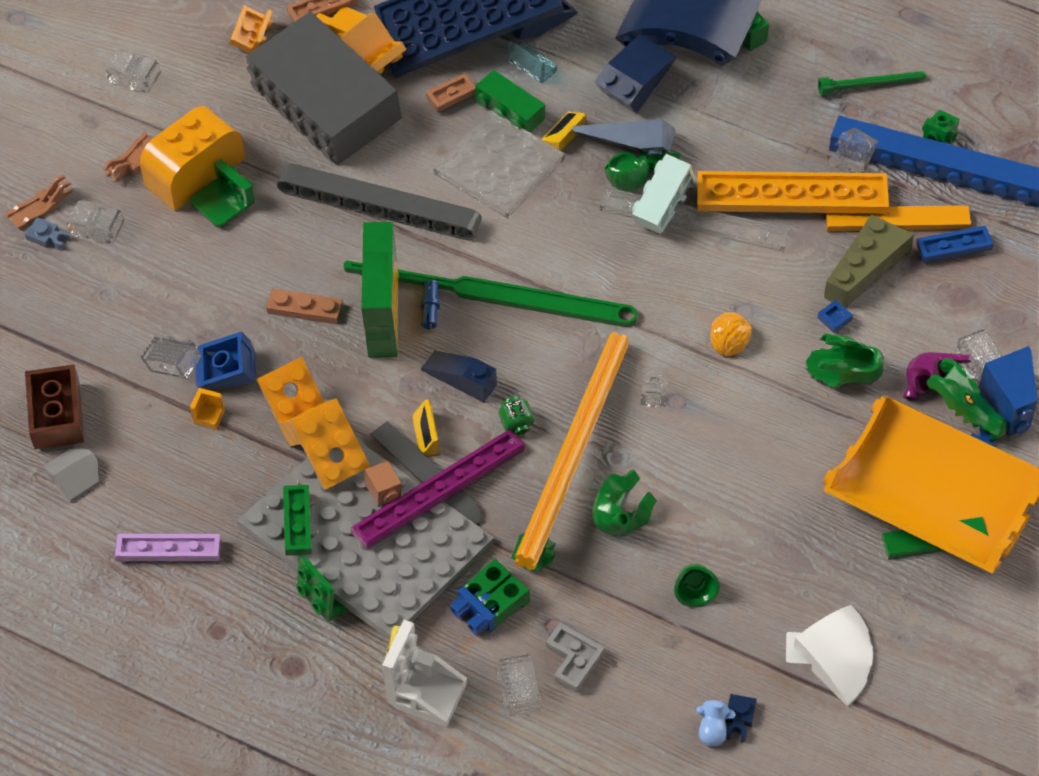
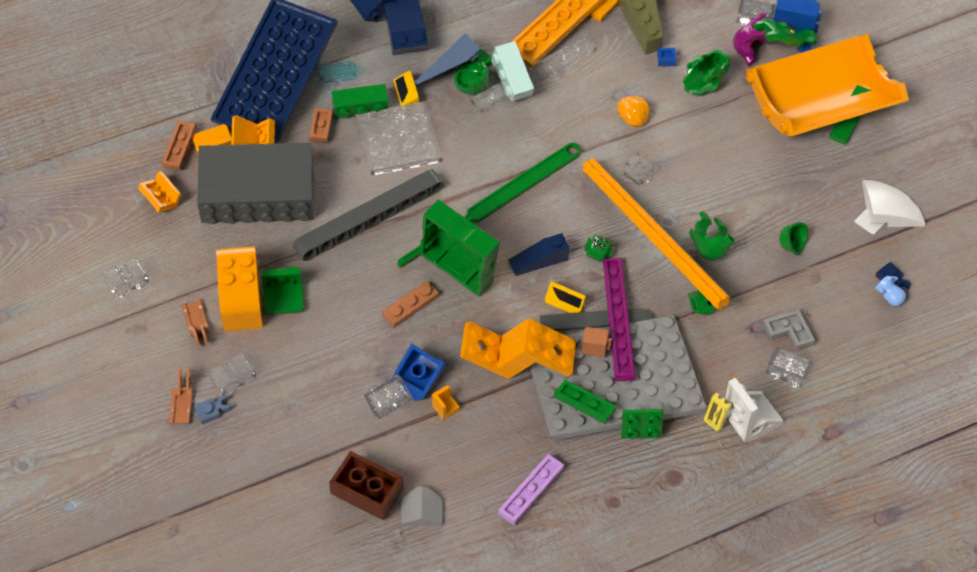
camera: 55 degrees left, 0 degrees up
(490, 598) = (716, 343): green hips -> none

